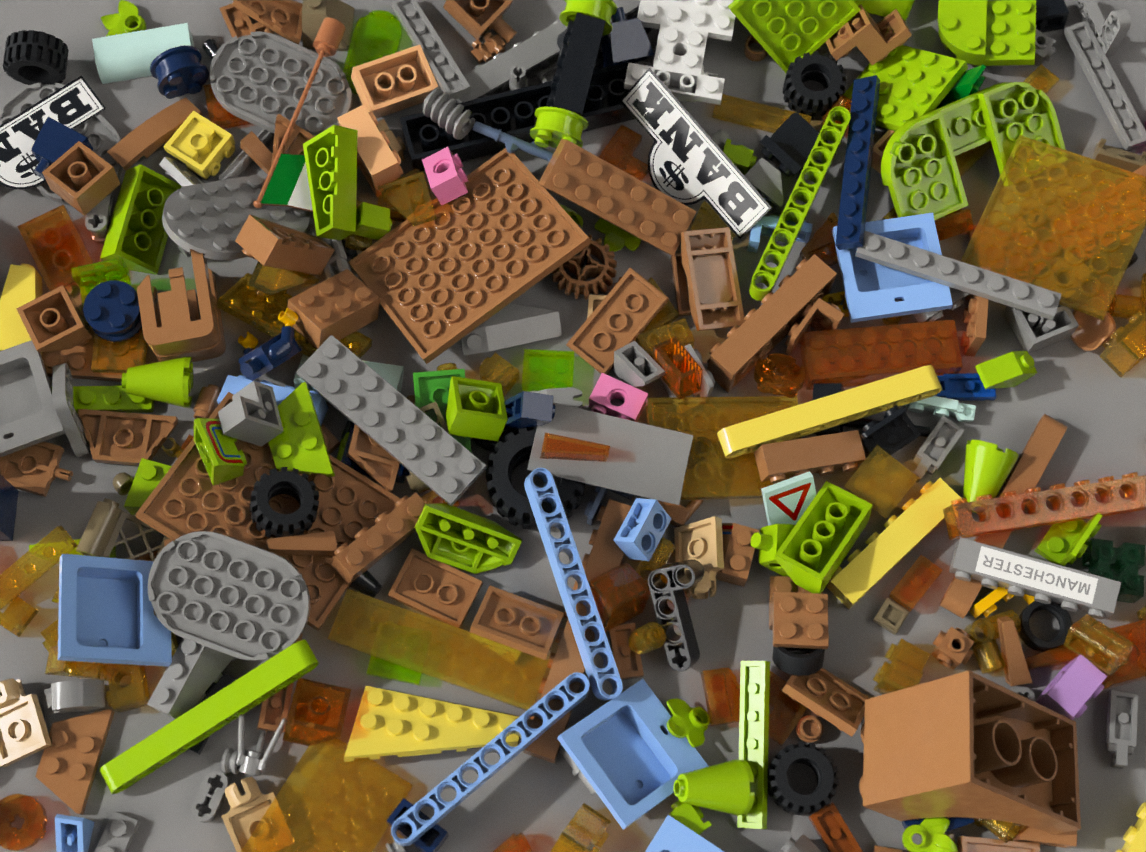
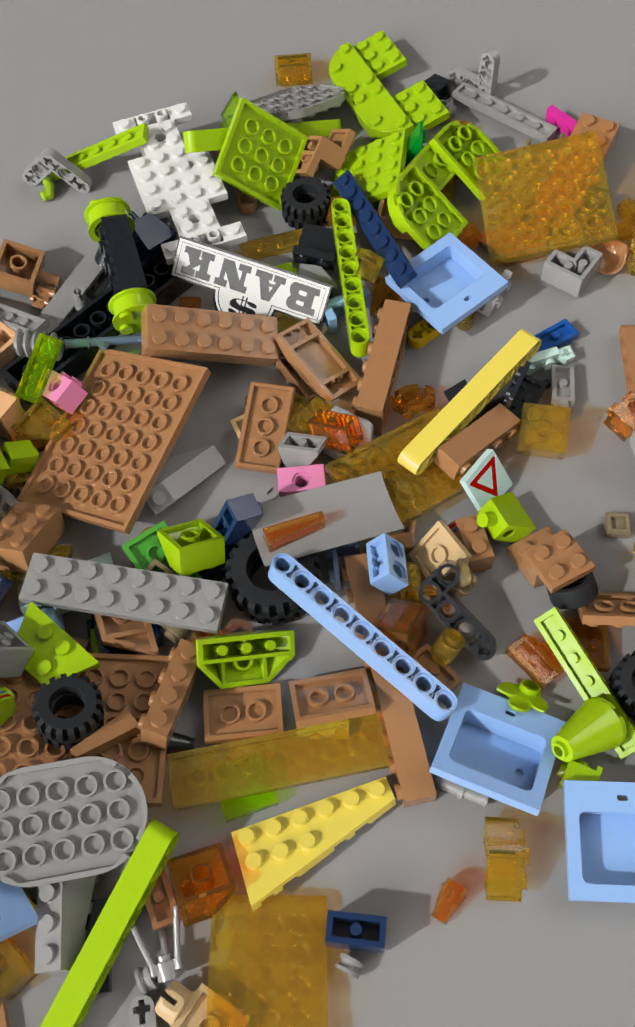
camera: 25 degrees left, 10 degrees down
(433, 144) = (38, 368): none -> clear neon green plate
(485, 771) = (379, 836): light blue beam -> none
(499, 371) = (192, 510): clear yellow brick -> none
(547, 369) = (228, 487): clear neon green plate -> none
(592, 270) = (226, 402): medium nougat gear -> none
(617, 237) = (225, 372): lime plate -> none
(809, 729) = (620, 645): medium nougat plate -> none
(818, 316) = (417, 346): medium nougat bracket -> none
(823, 206) = (370, 264): none -> clear yellow panel
(823, 537) = (530, 492): lime slope -> none
(879, 352) = (472, 346): clear orange brick -> none
(893, 544) = (582, 471): light yellow brick -> none
(915, 583) = (619, 489): clear orange plate -> none
(959, 275) = (499, 259): light grey plate -> none
(976, 323) = (526, 283): medium nougat plate -> none
(986, 469) = (609, 379): lime cone -> none
(1006, 370) = (575, 308): lime slope -> none

